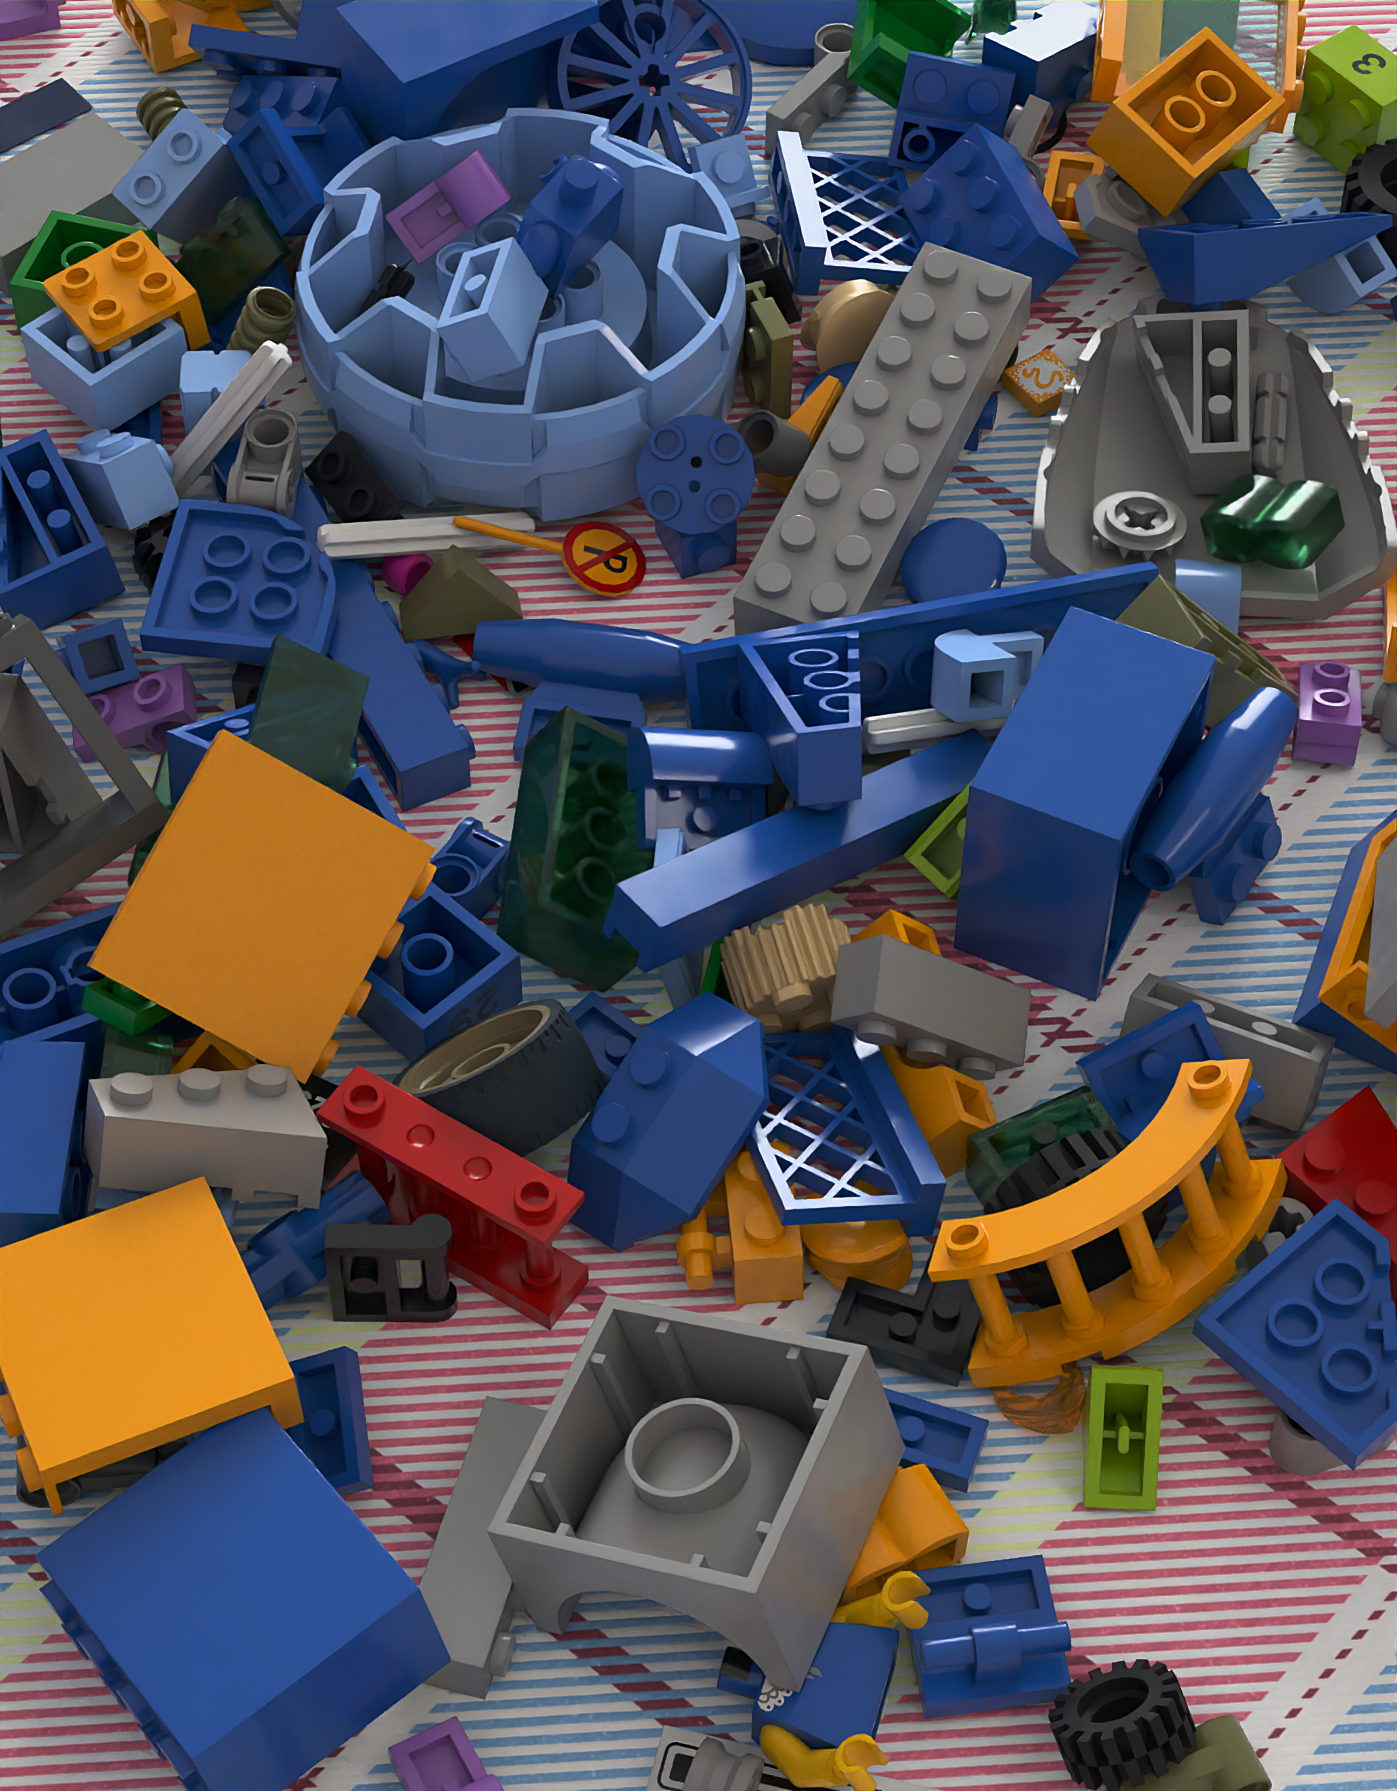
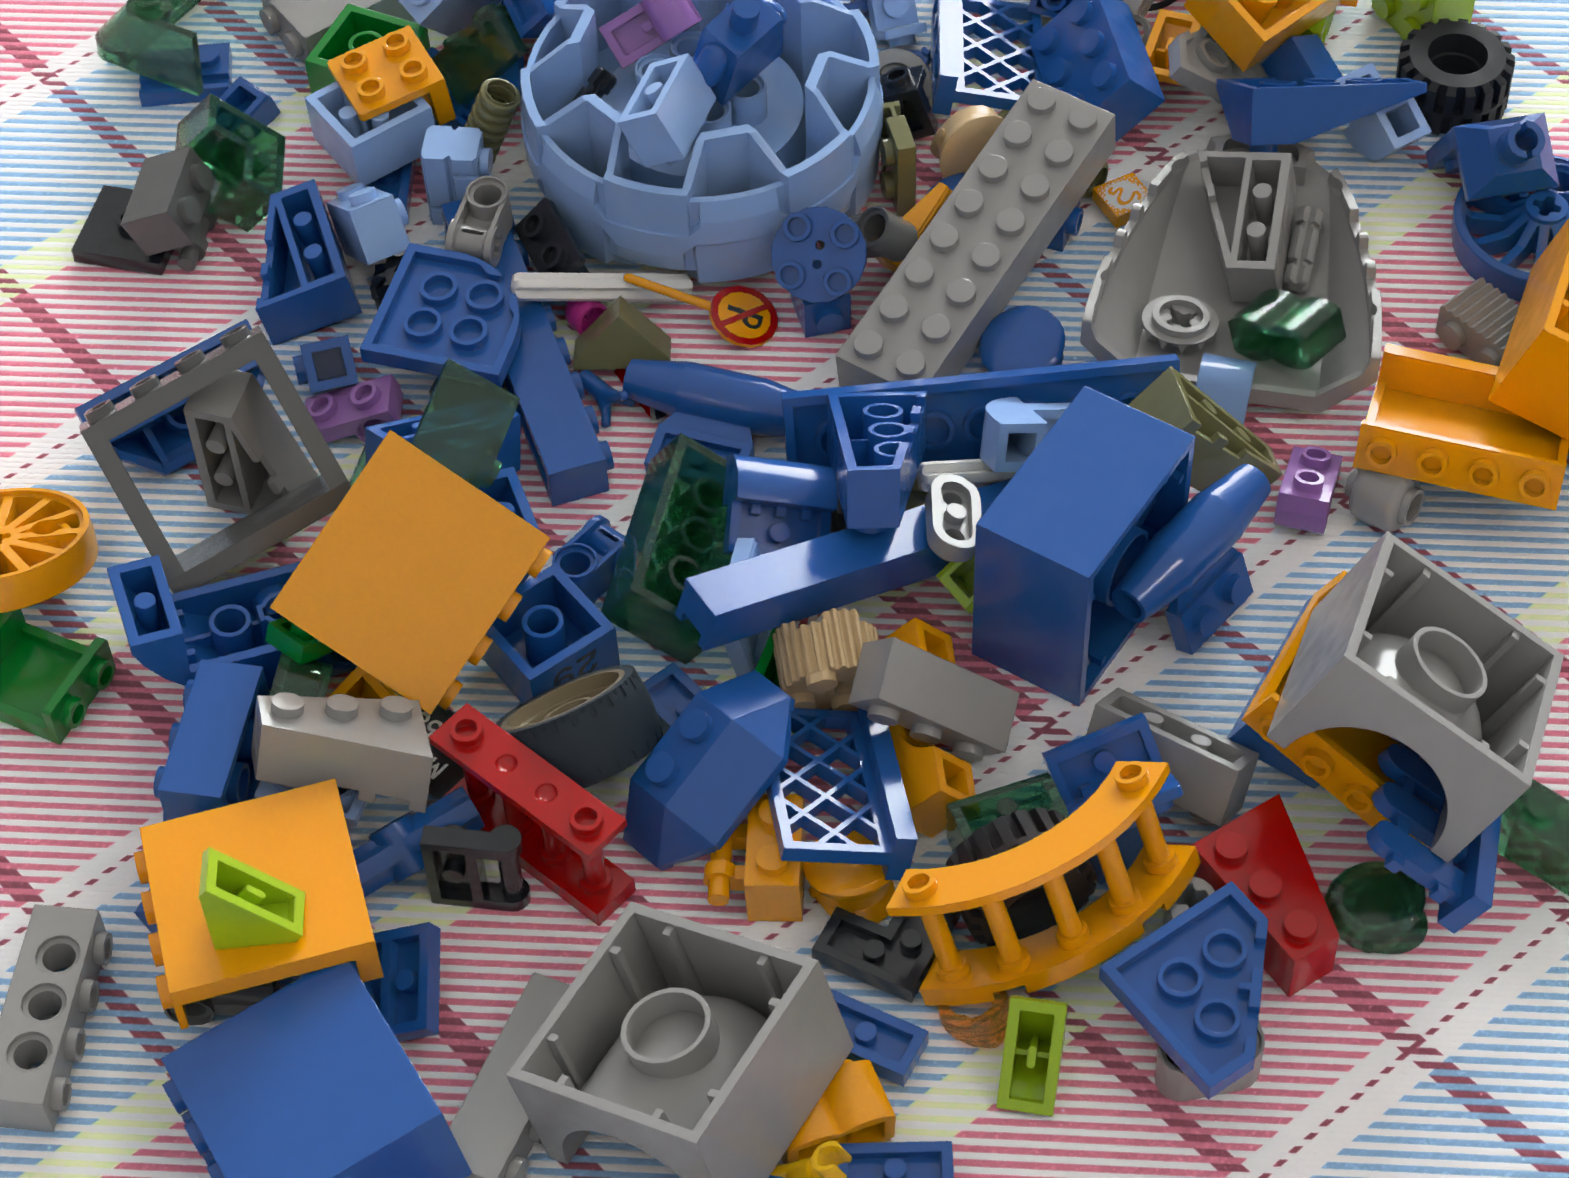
camera: 10 degrees right, 0 degrees up
(127, 1347) = (247, 905): none -> lime slope
(228, 414) = (453, 180): white axle -> none
(920, 783) = (951, 517): none -> light grey plate

